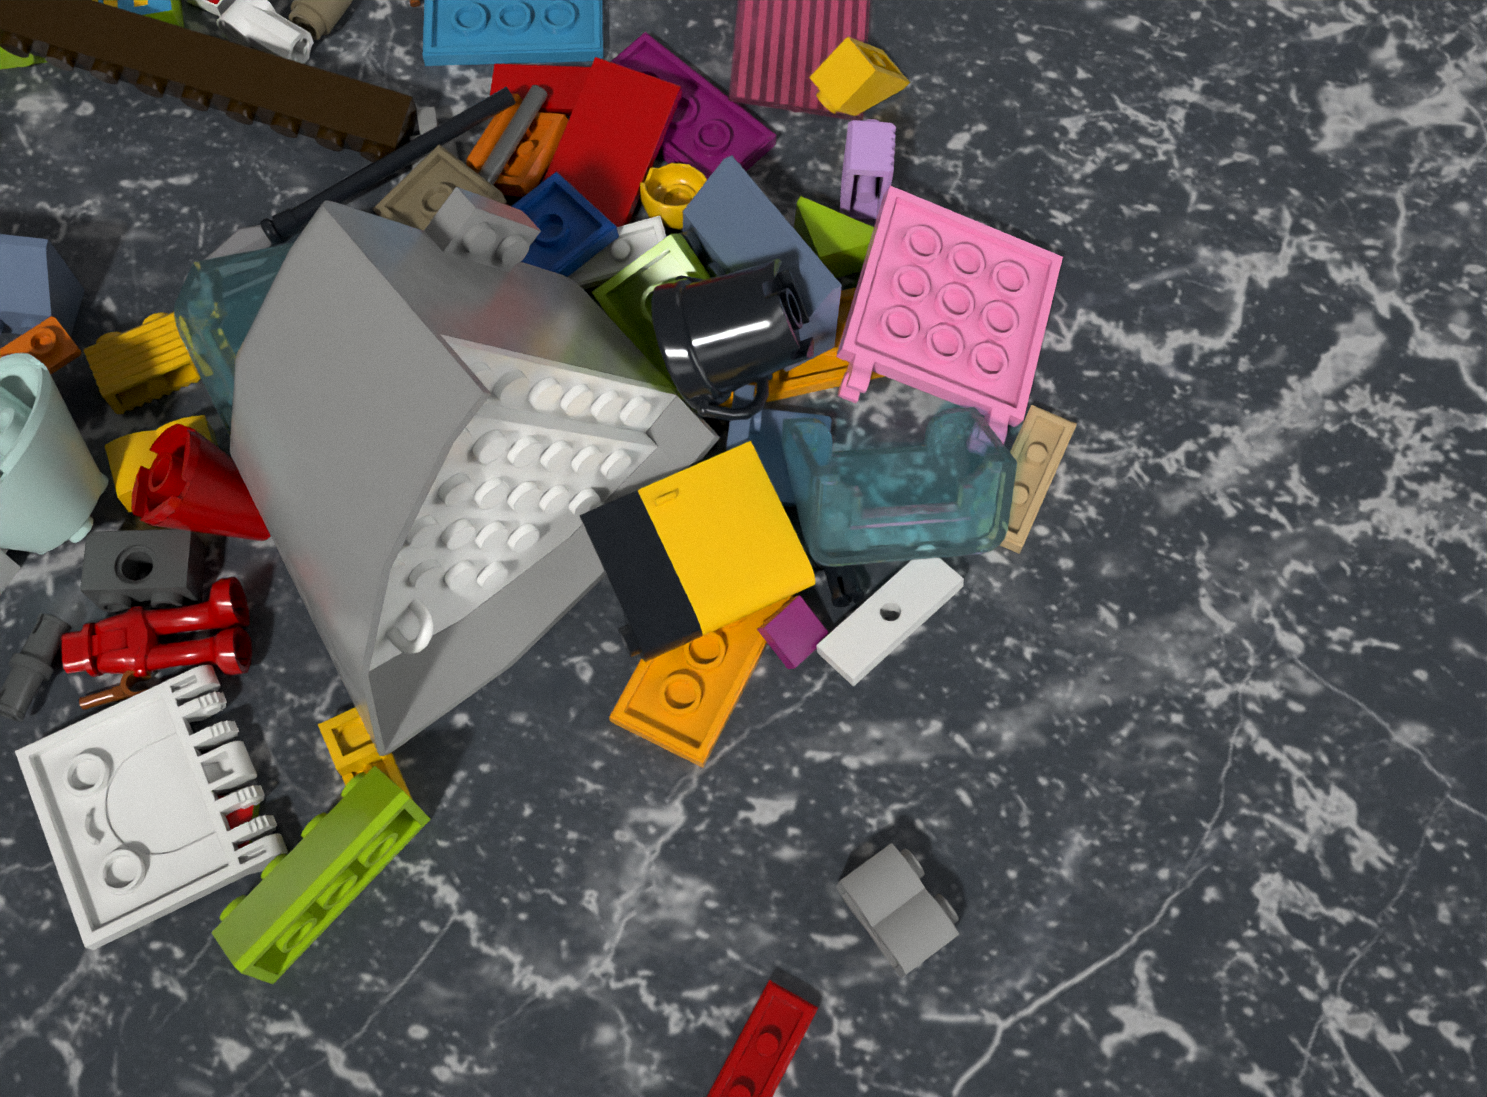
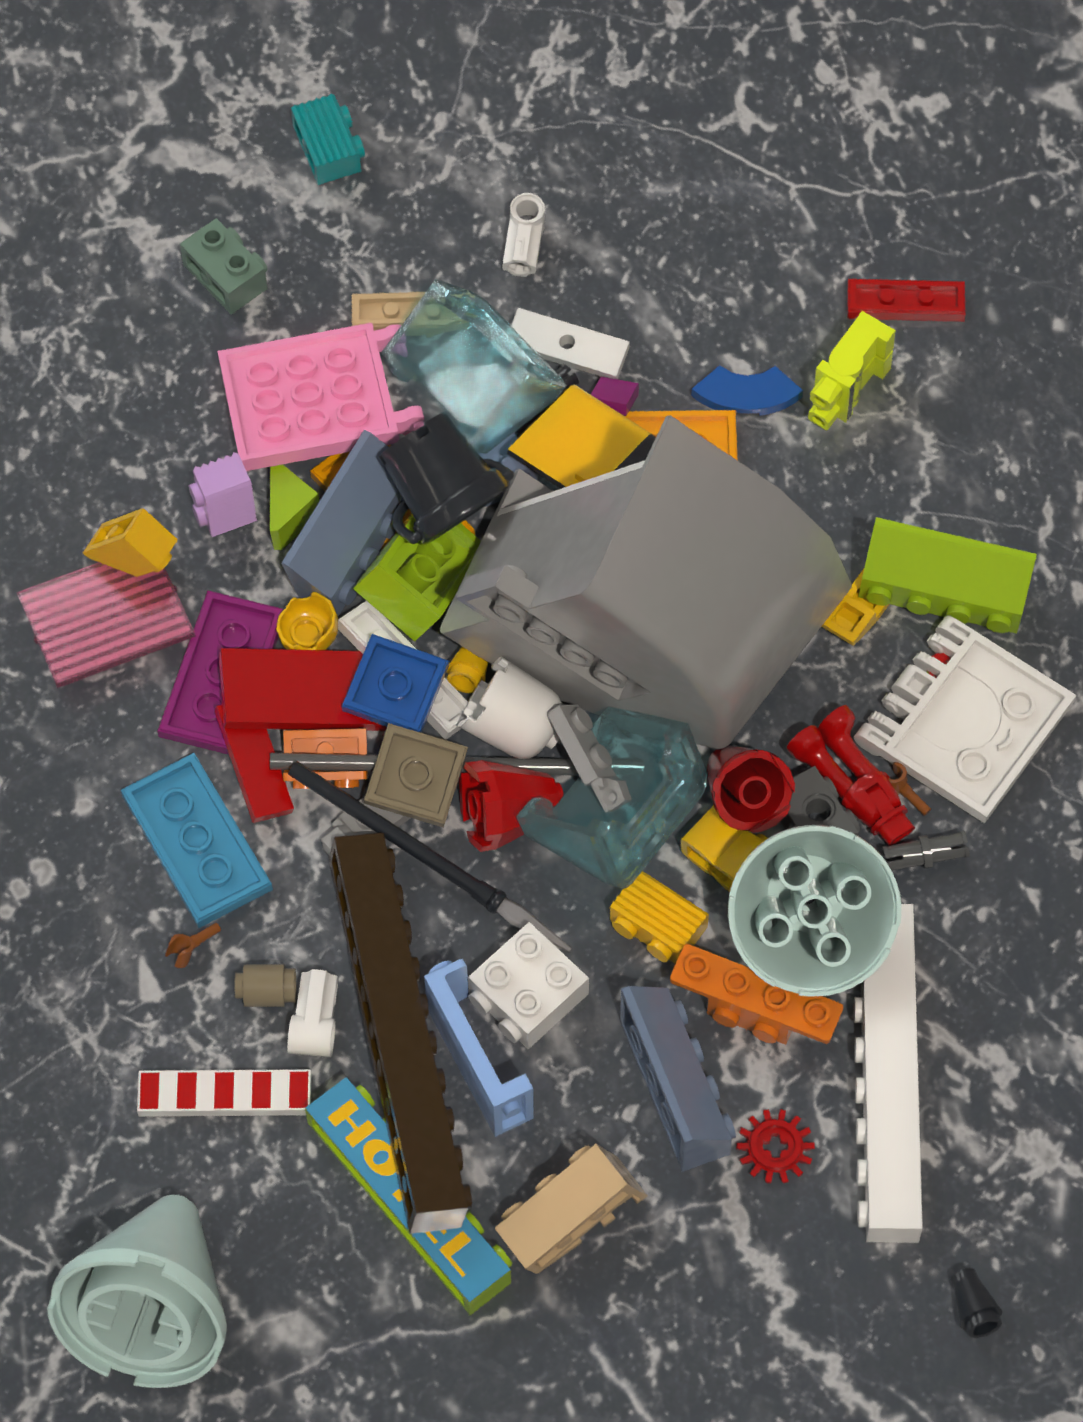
camera: 115 degrees left, 5 degrees down
(113, 115) = (501, 1104): none -> light blue panel
(161, 212) = (527, 986): none -> white brick
(665, 911) = (857, 356): none -> neon yellow hips
(719, 793) = (747, 394): none -> blue tile
(898, 909) = (761, 259): light grey brick -> none
(1062, 639) = (524, 235): none -> white piece
(1174, 309) = (224, 265): none -> sand green brick
(1307, 489) = (326, 138): none -> teal brick

